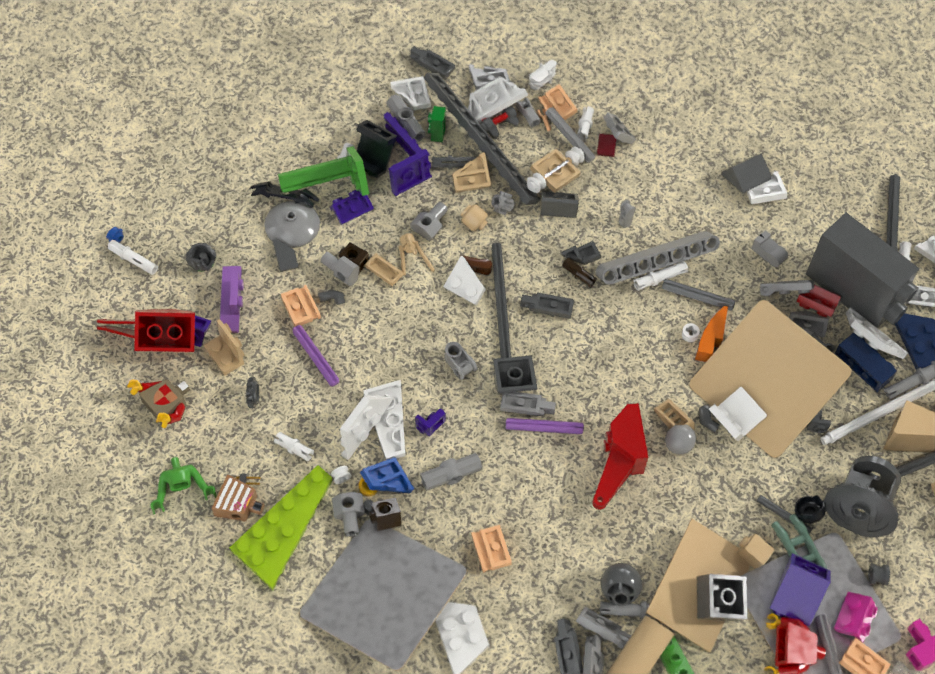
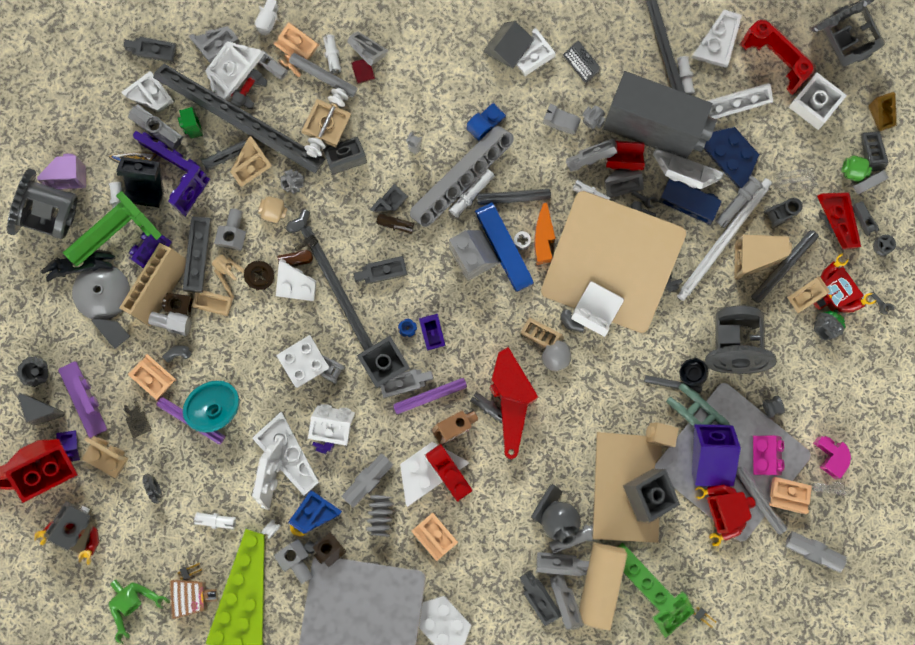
camera: 25 degrees left, 20 degrees up
(151, 389) = (68, 514): none -> dark grey brick
(189, 288) = (36, 411): none -> dark grey slope
(268, 335) = (138, 422): none -> clear smoke plate
(276, 122) = (43, 202): none -> dark grey piece
(310, 119) = (64, 173): none -> lavender slope
(340, 347) = (205, 401): none -> teal dish
(352, 226) = (154, 283): none -> tan brick
(390, 226) = (196, 254): none -> dark grey plate
(437, 405) = (331, 424): none -> white bracket
(439, 258) = (257, 267): none -> dark brown gear
(441, 344) = (303, 361): none -> white bracket
(447, 503) = (380, 515): none -> light grey piece
(490, 238) = (298, 223): none -> dark grey arm
(495, 253) = (311, 241): none -> clear smoke hand
(512, 489) = (420, 476): none -> white wing
(531, 495) = (448, 472): none -> red plate
(550, 356) = (412, 328): none -> blue plate
(554, 457) = (448, 430): none -> medium nougat torso
(571, 370) = (432, 331): none -> dark purple slope
(595, 457) = (487, 406): none -> dark grey pin
(621, 556) = (551, 495): none -> dark grey slope
(638, 320) = (473, 253): none -> light grey slope
(671, 330) = (504, 247): none -> blue beam
(692, 224) = (483, 123): none -> blue plate
(801, 258) = (593, 117): none -> light grey gear
(809, 213) = (582, 62): none -> slope

